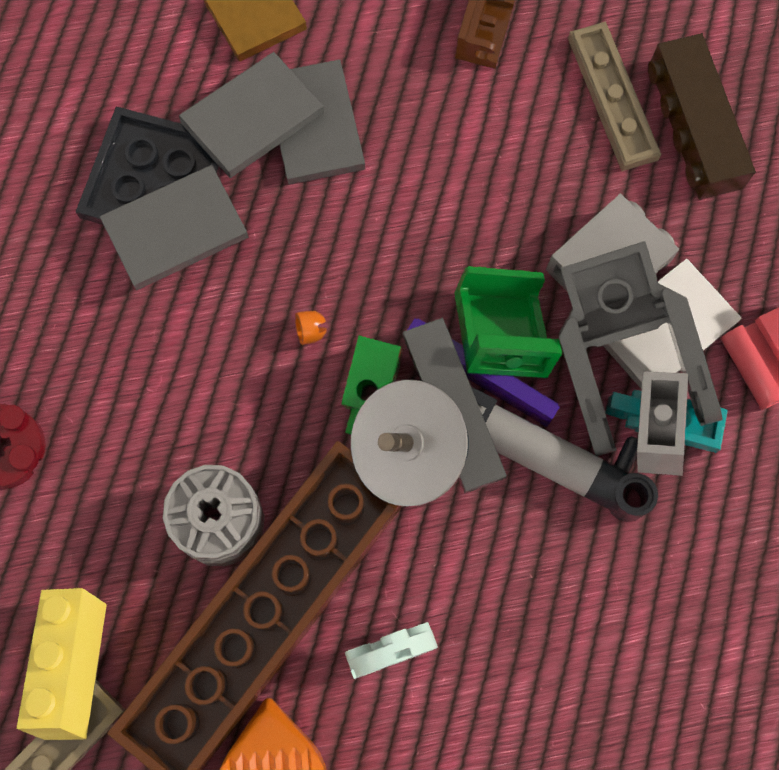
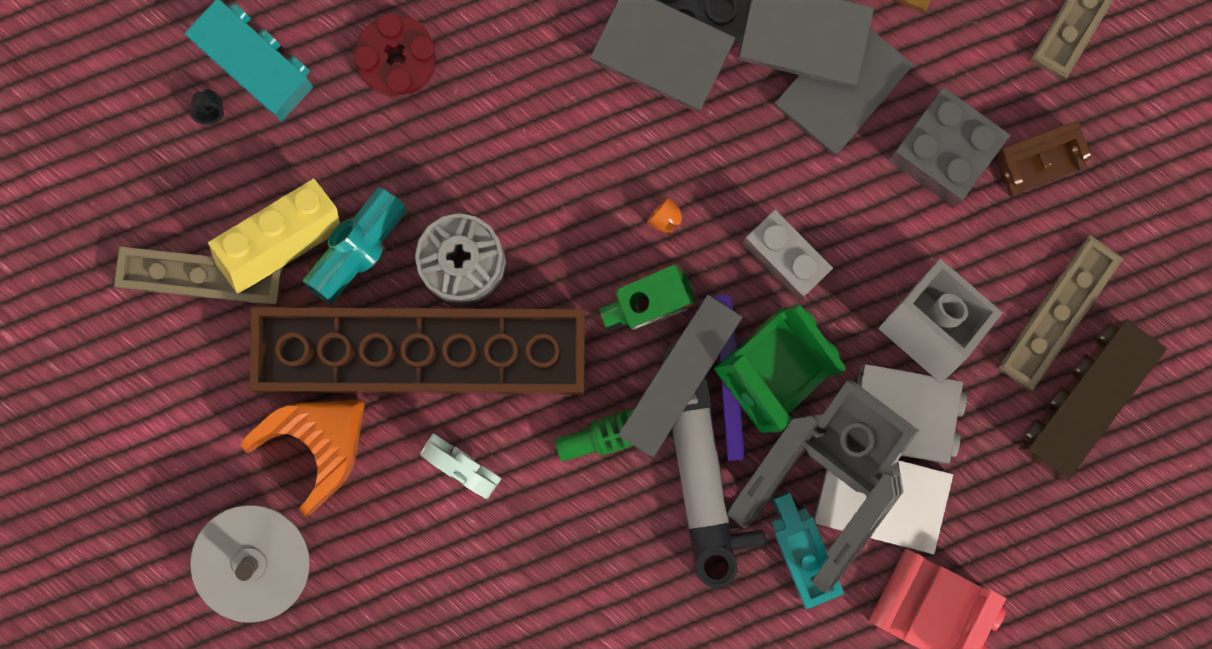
camera: 55 degrees right, 10 degrees up
(129, 601) = (354, 246): none -> teal piece
(409, 443) = (619, 366): light grey piece -> none
(417, 254) = (787, 255): none -> light grey brick
(425, 78) = (949, 147): none -> dark grey brick
(453, 512) = (599, 437): none -> green hinge
(560, 174) = (940, 321): none -> light grey brick
(662, 423) = (784, 548): light grey brick -> none

